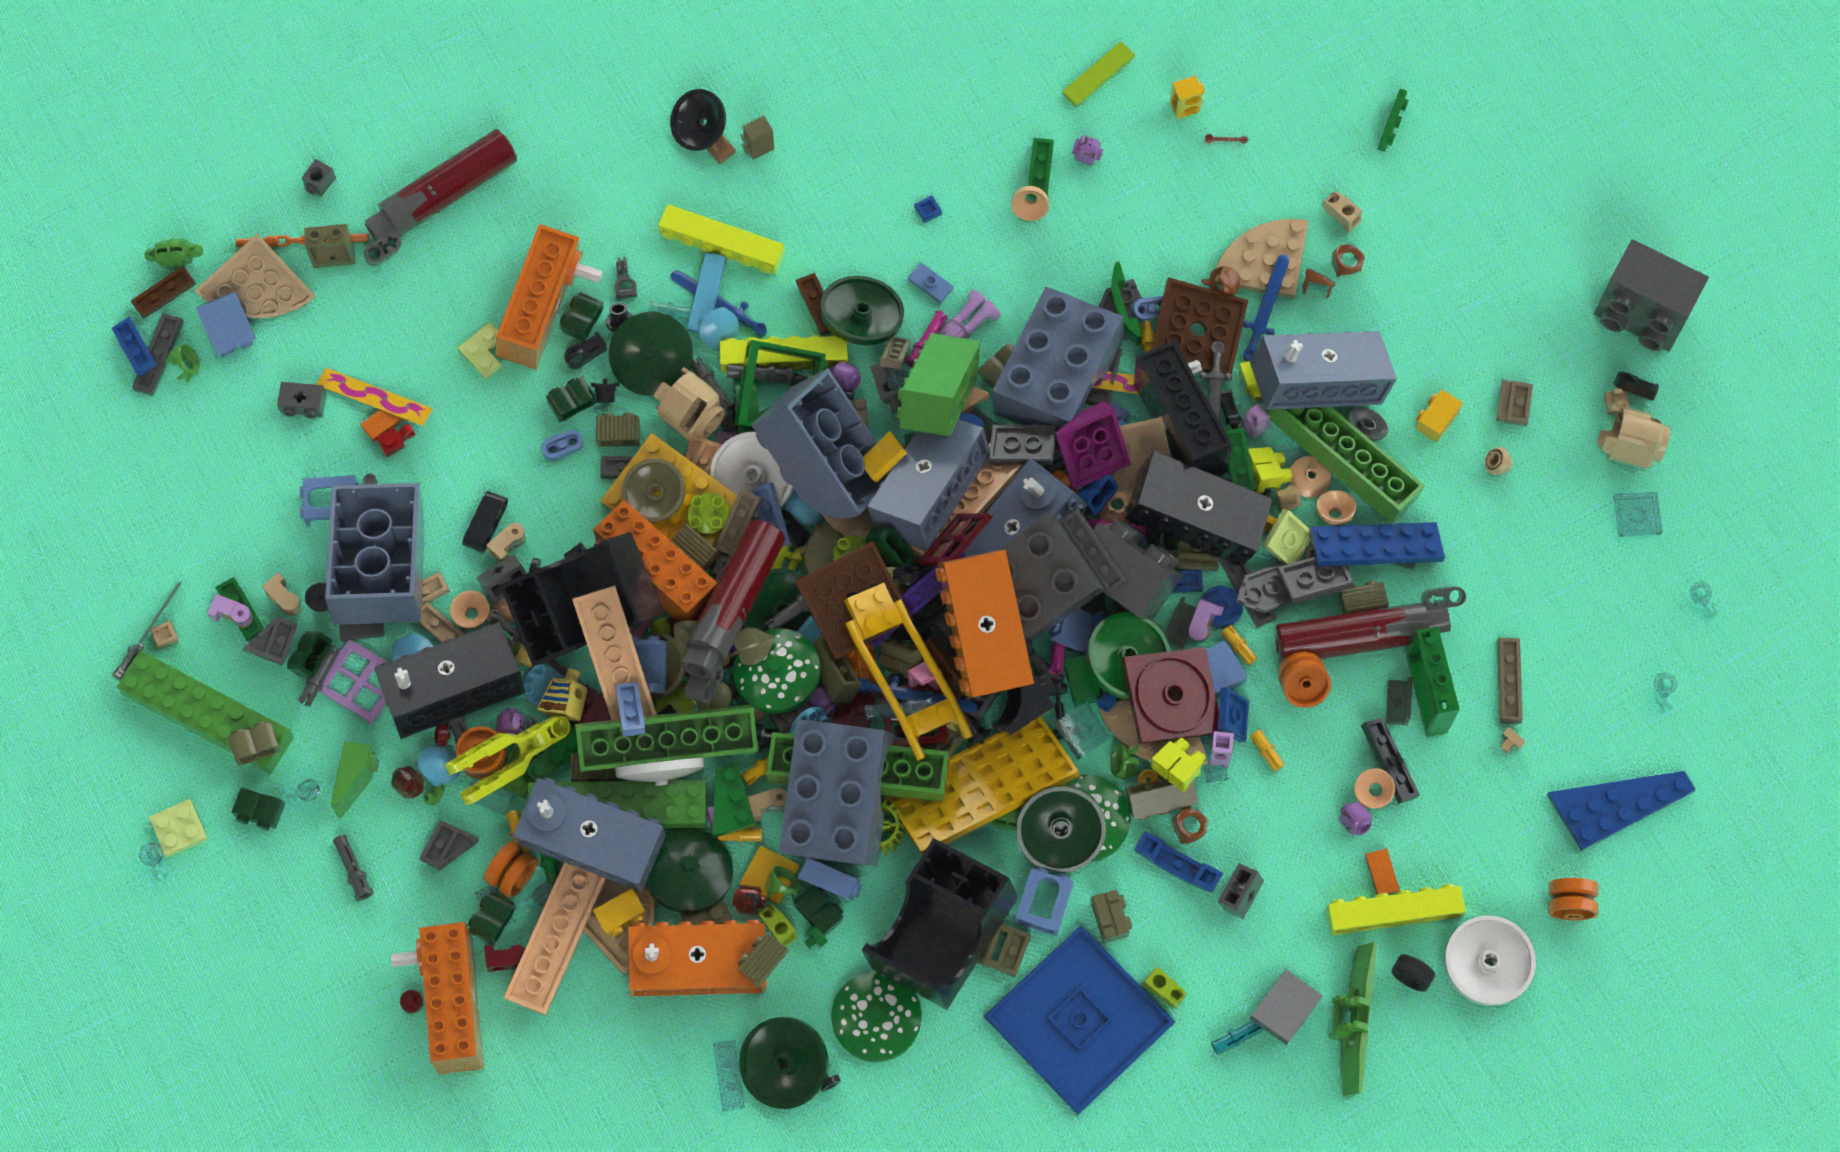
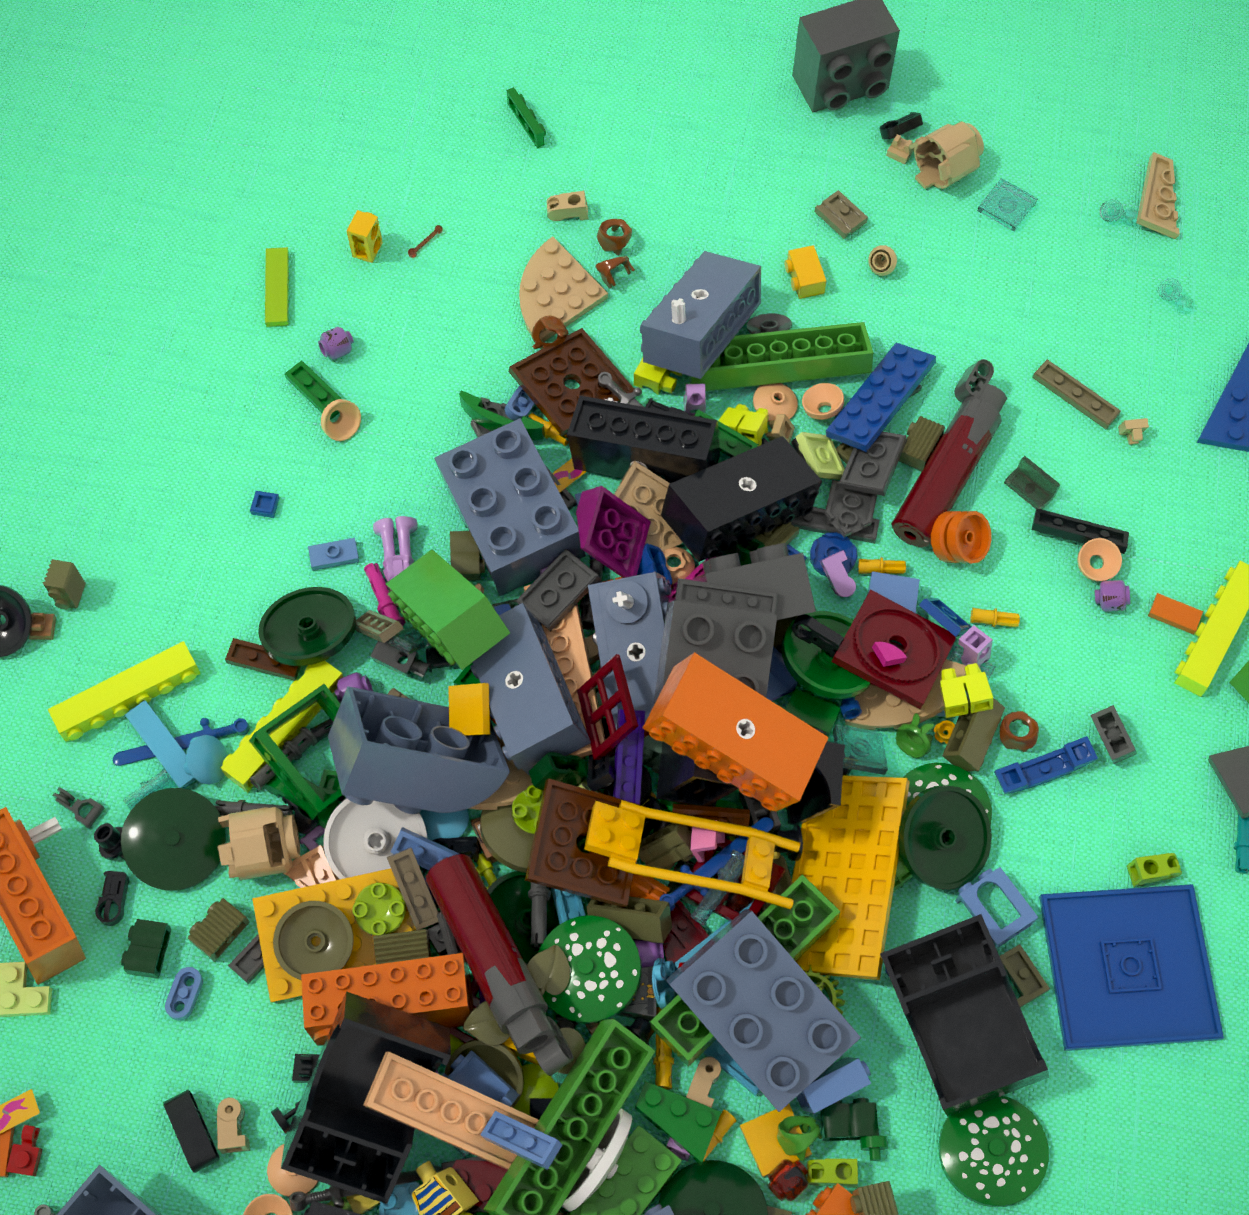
camera: 50 degrees left, 5 degrees down
(500, 573) = (263, 1161): dark grey brick -> none
(581, 316) = (76, 873): dark green brick -> none
(605, 392) = (170, 910): black piece -> none
(1110, 916) = (1053, 861): olive brick -> none
(1130, 632) = (819, 634): none -> black piece
(1158, 691) = (888, 654): none -> dark pink tile
(1178, 628) = (824, 594): clear smoke panel -> none
(1266, 306) = (611, 338): blue sword -> none
(1432, 681) = (1055, 423): green window -> none
(1739, 623) = (1158, 197): none -> tan wing

